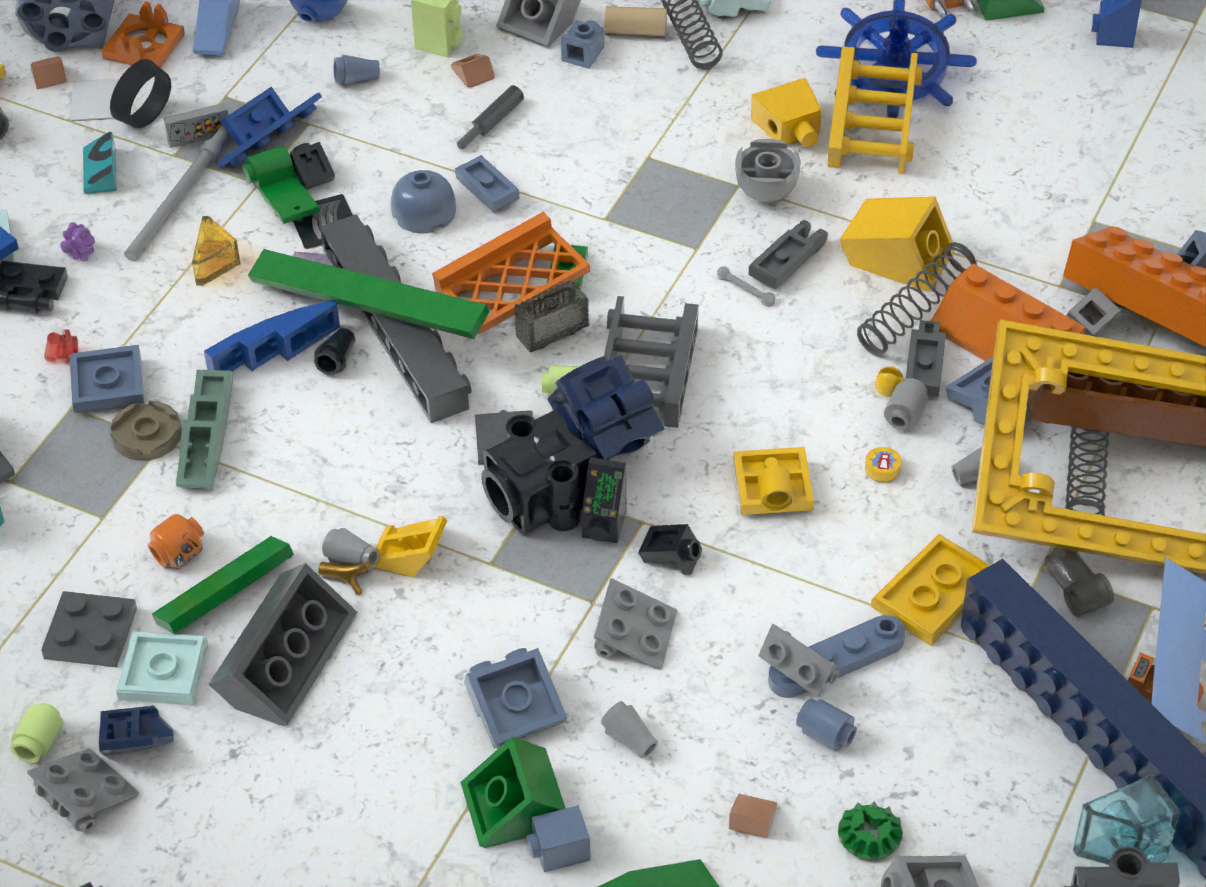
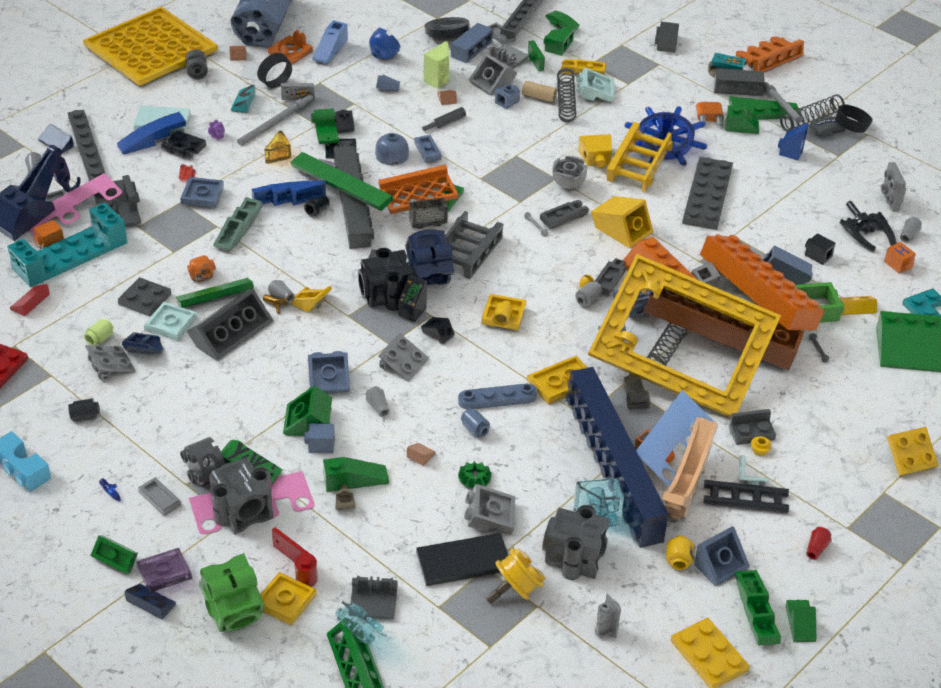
camera: 15 degrees right, 5 degrees down
(146, 430) = (210, 219): dark tan tile -> none
(259, 118) = (328, 95): blue bracket -> none
(797, 661) = (472, 390): light grey hinge -> none
(875, 350) = (586, 255): dark grey piece -> none
(883, 464) = (564, 318): yellow tile -> none
(1014, 150) = (707, 193): none -> dark grey plate

